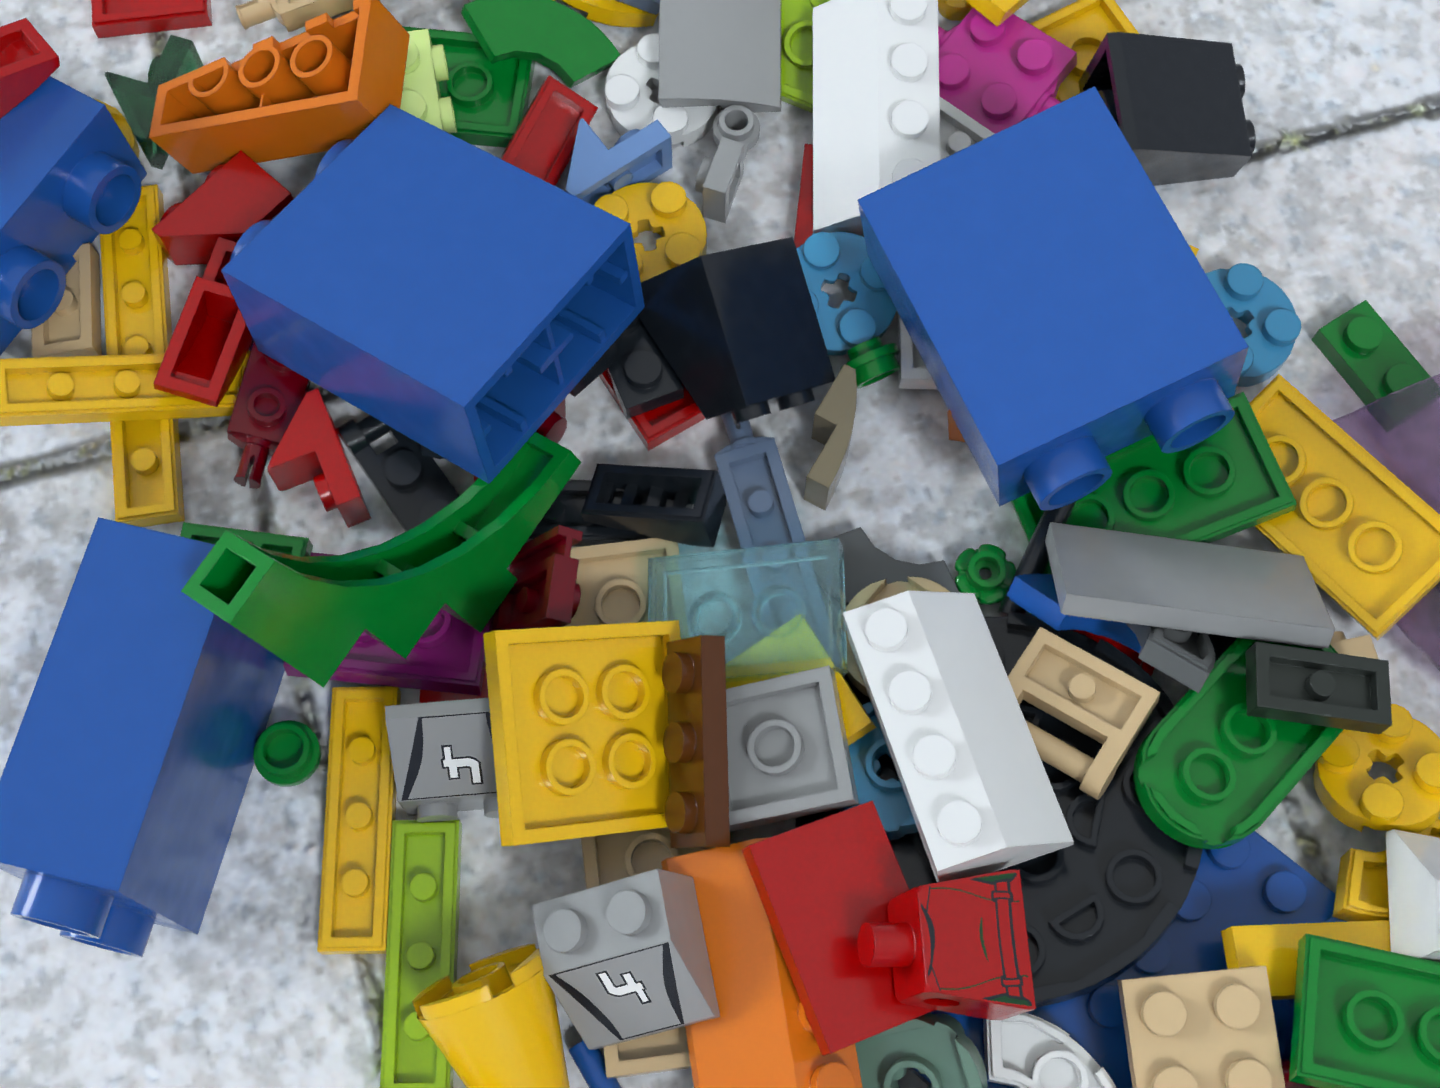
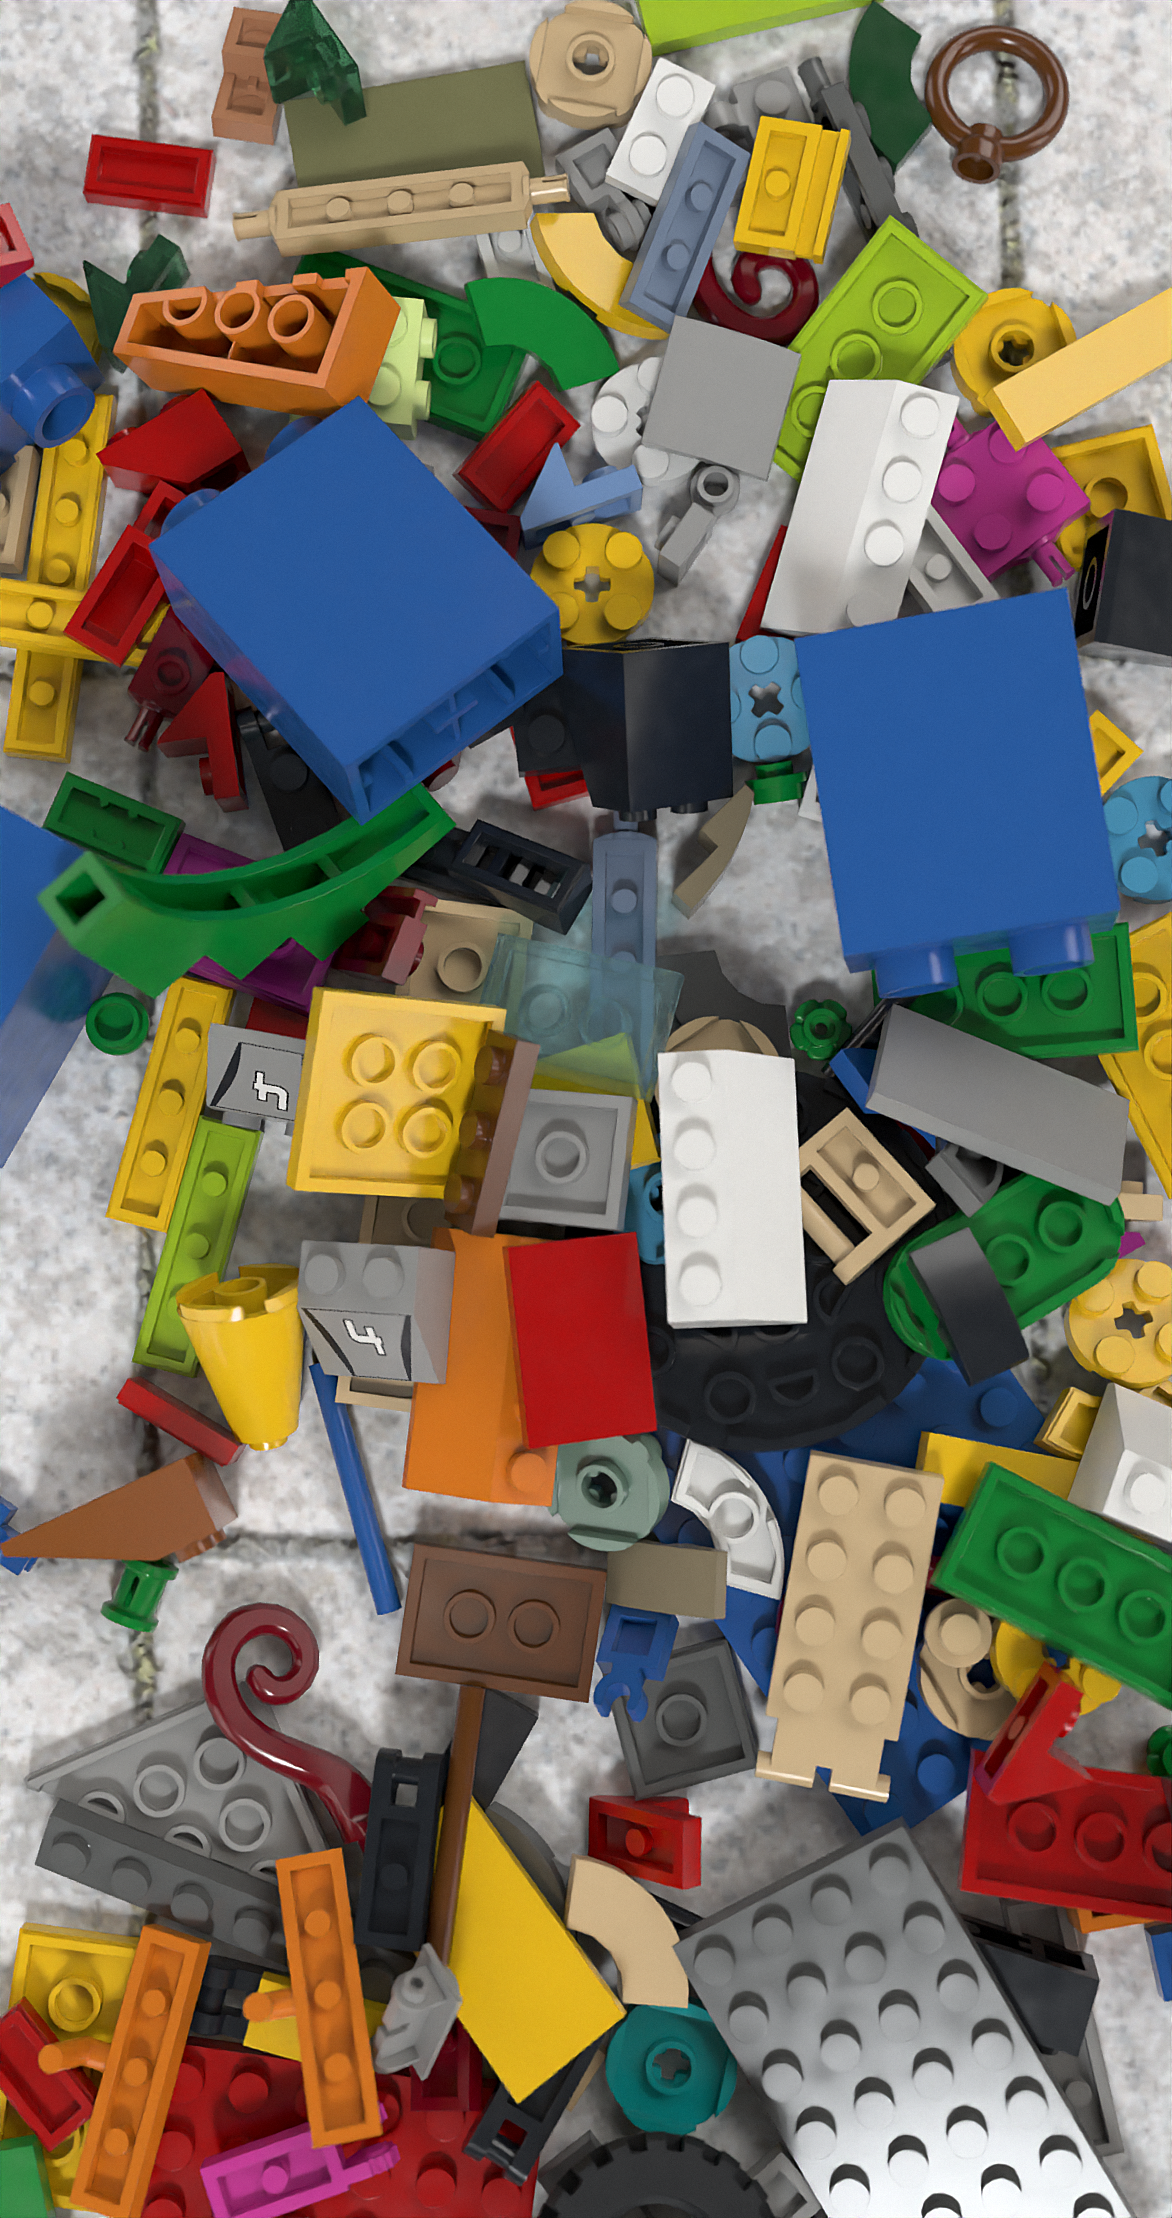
camera: 15 degrees right, 15 degrees up
(956, 946) = (669, 1386): red torso -> none
(1240, 785) = (970, 1307): none -> black slope
(1318, 688) = (1084, 1242): pearl dark grey plate -> none

